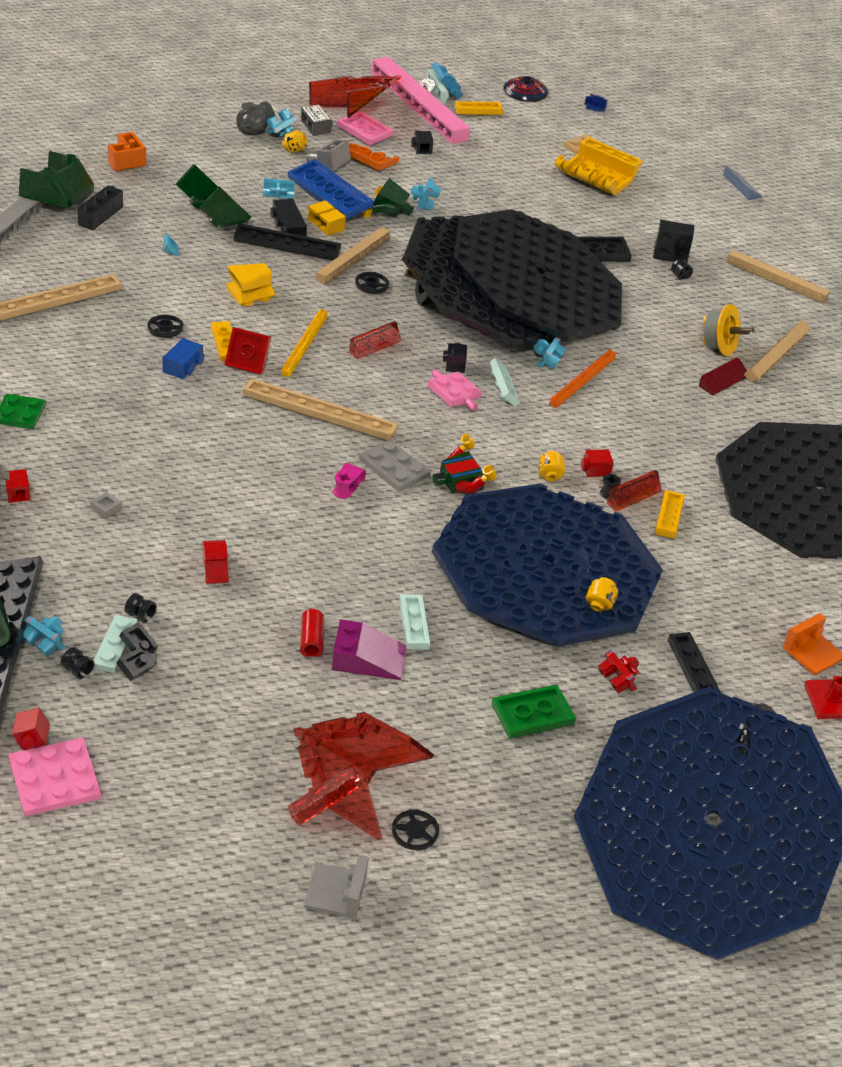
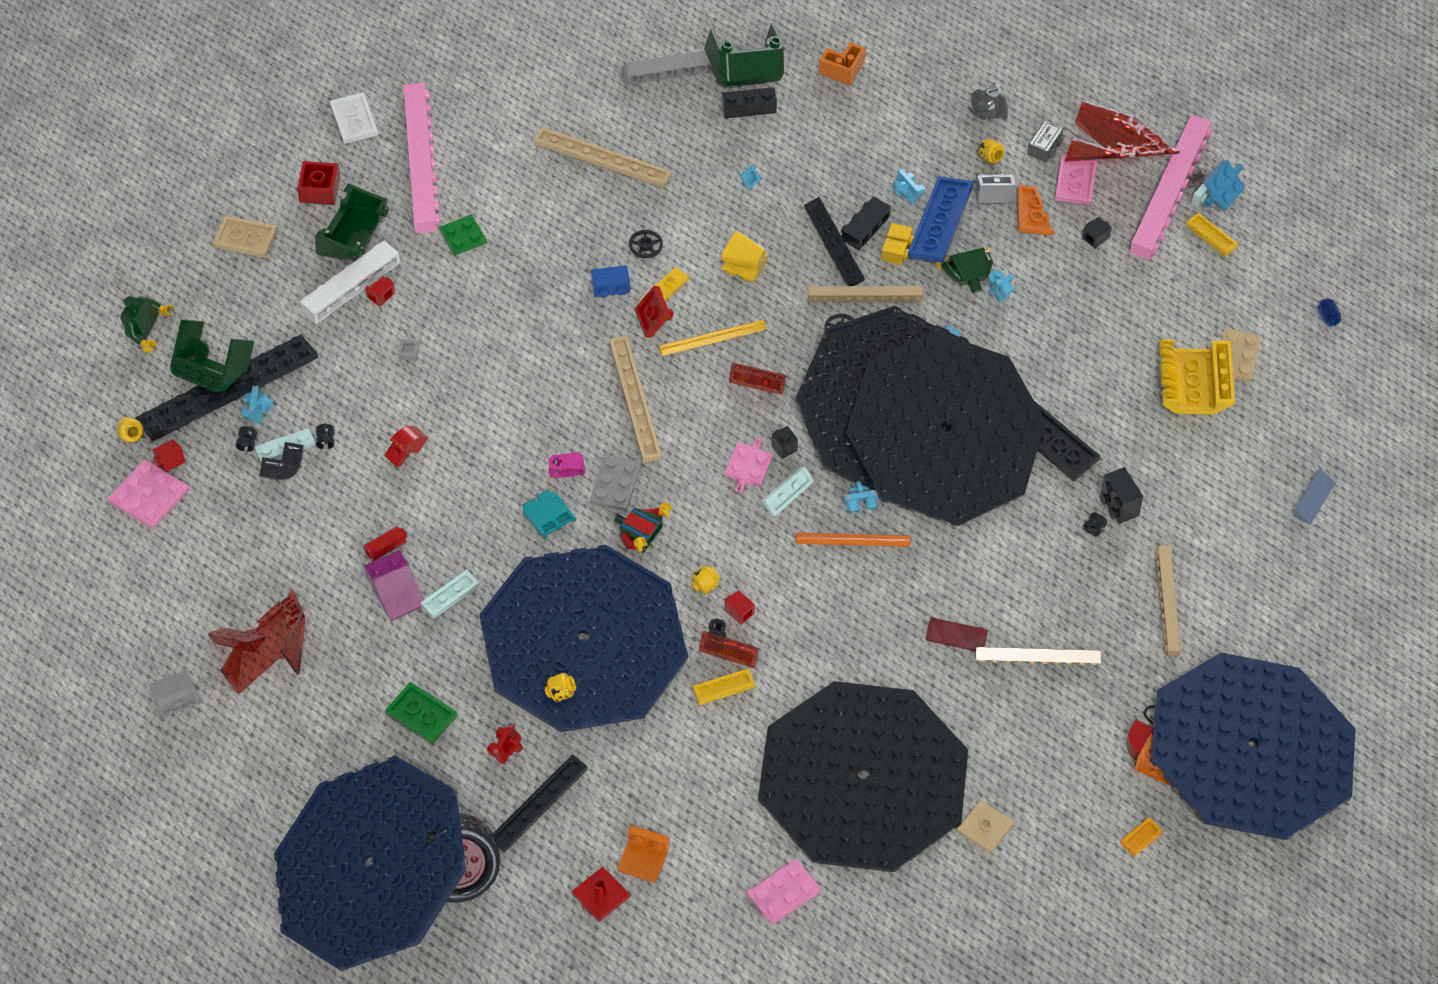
camera: 60 degrees right, 15 degrees up
(211, 199) = (838, 170): dark green windscreen -> none
(282, 126) = (1004, 128): medium azure hips -> none
(386, 517) = (547, 513): none -> teal plate
(415, 829) = (260, 707): black wheel -> none
(525, 89) = (1297, 247): dish -> none
(723, 329) = (1009, 600): piece -> none

